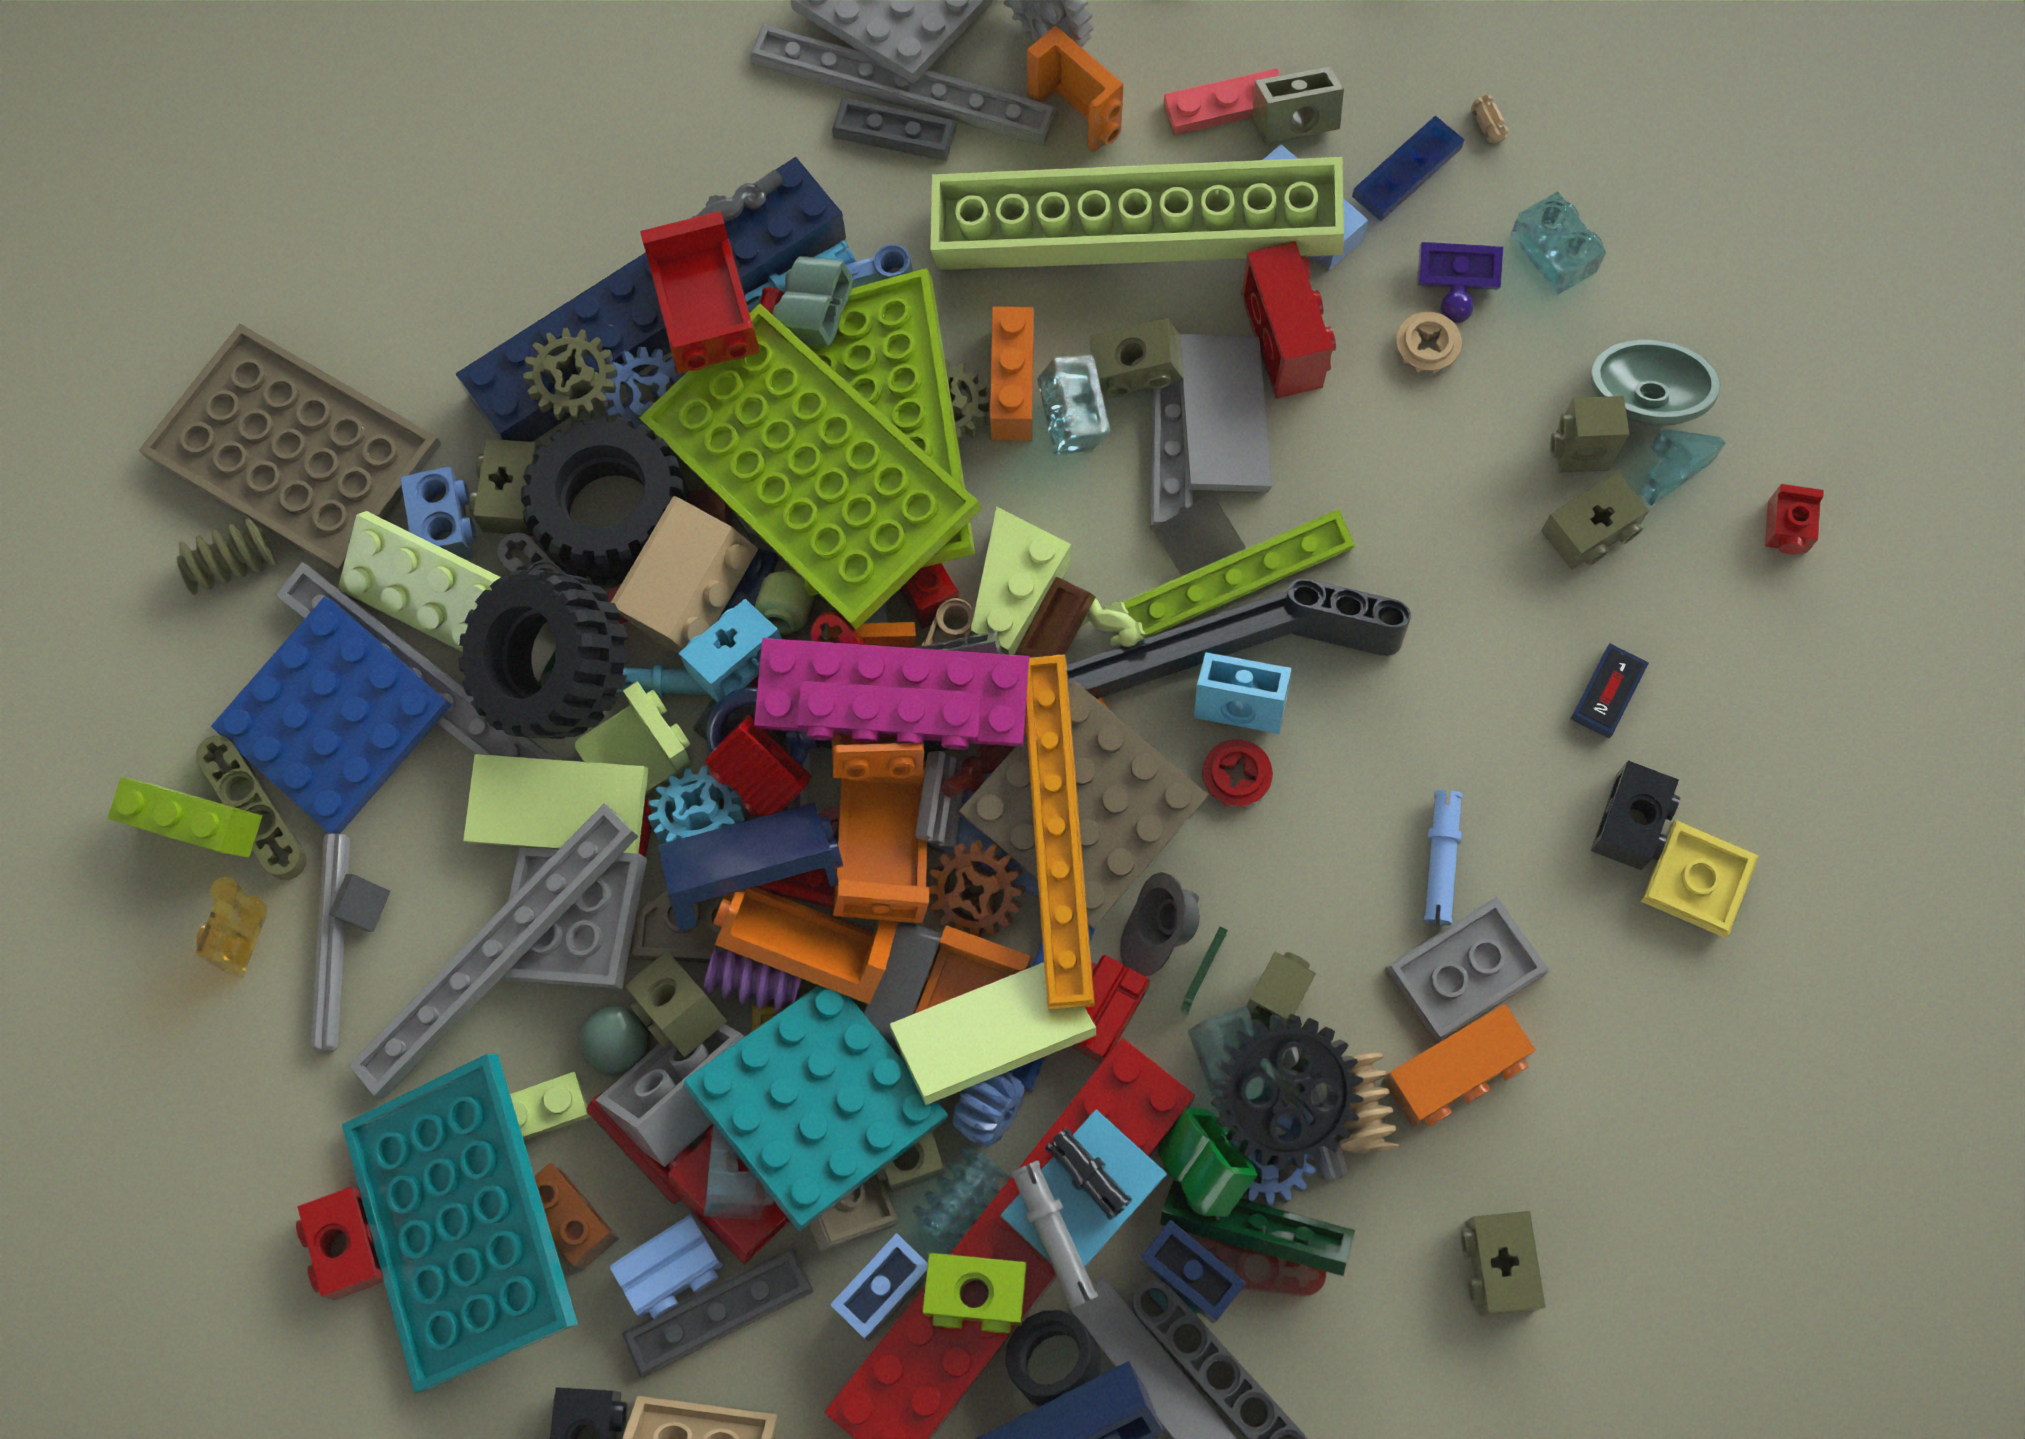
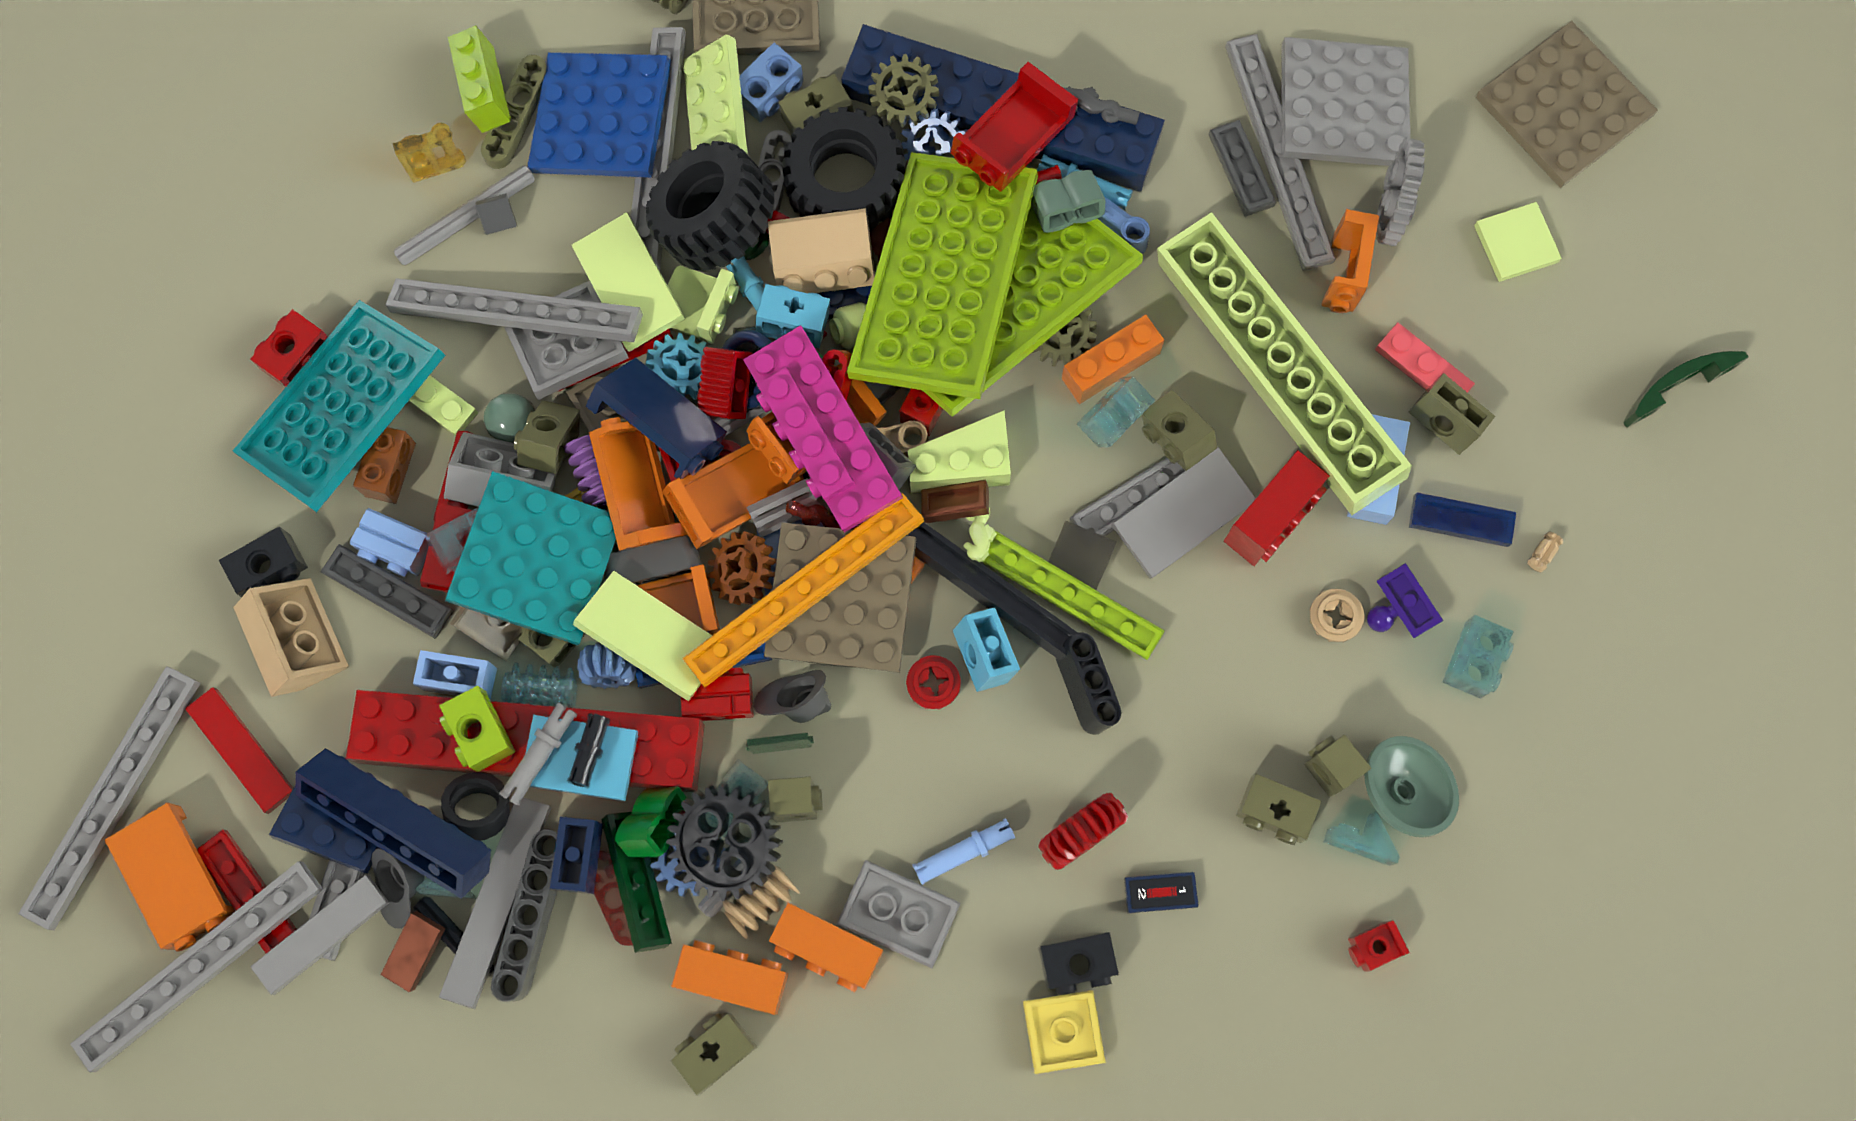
camera: 55 degrees right, 5 degrees up
(1430, 1191) = (730, 977): none -> orange brick
(1504, 718) = (1083, 831): none -> red gear

